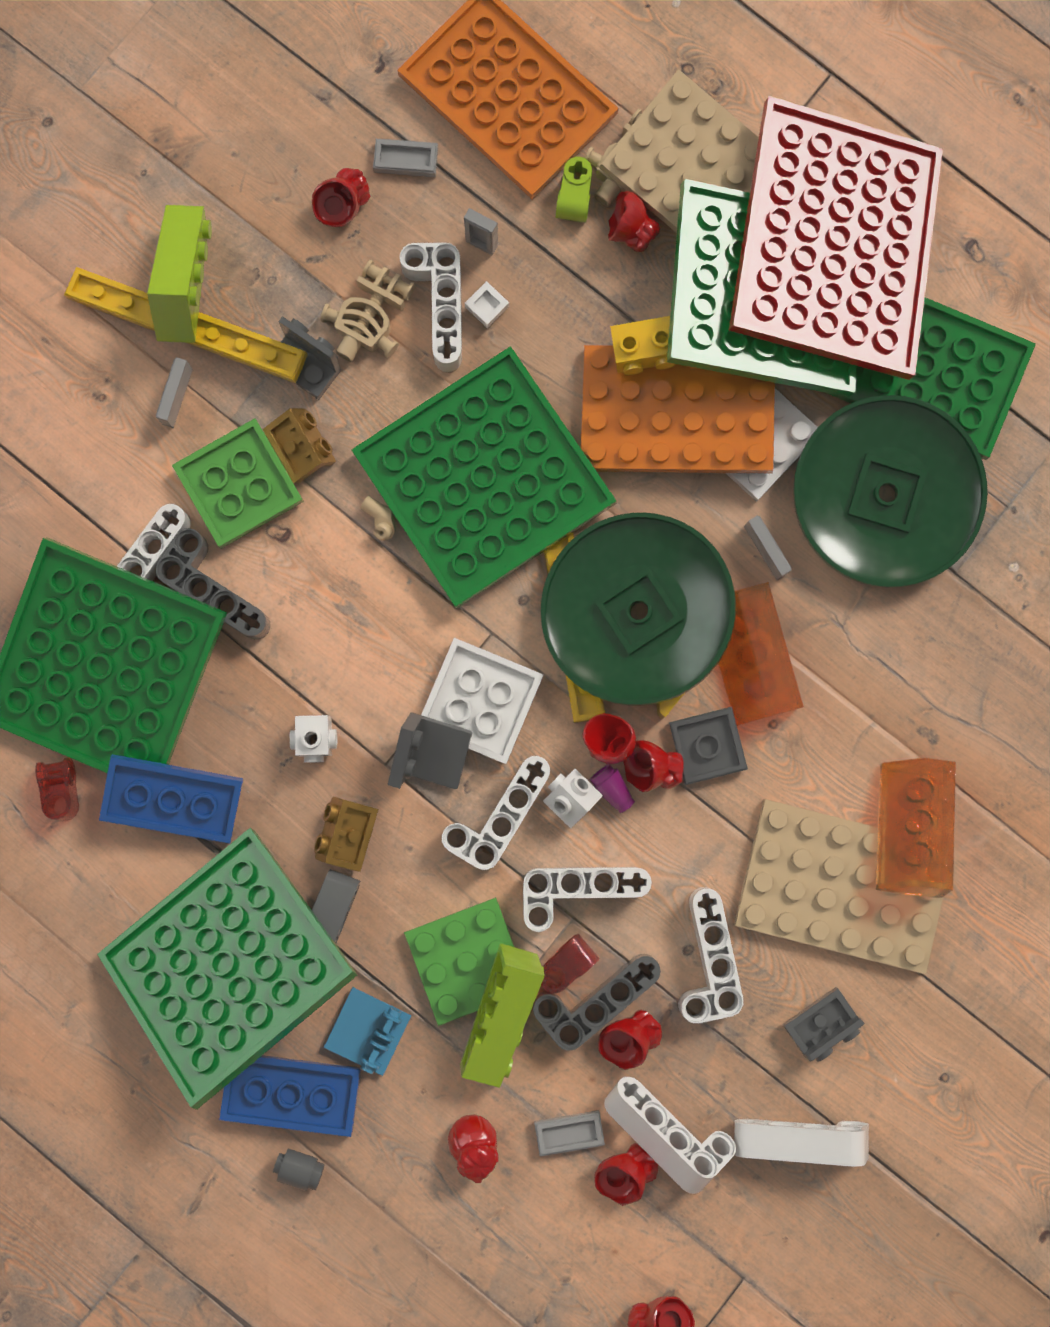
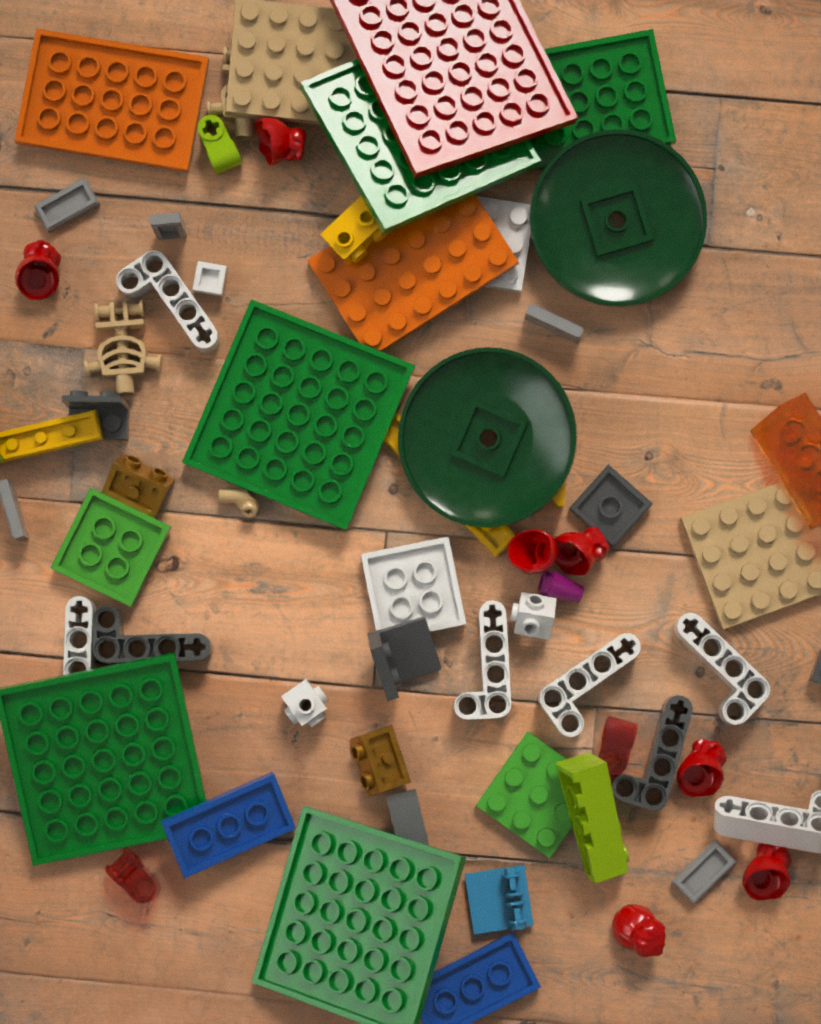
camera: 30 degrees left, 0 degrees up
(757, 661) = (604, 415): clear orange slope -> none

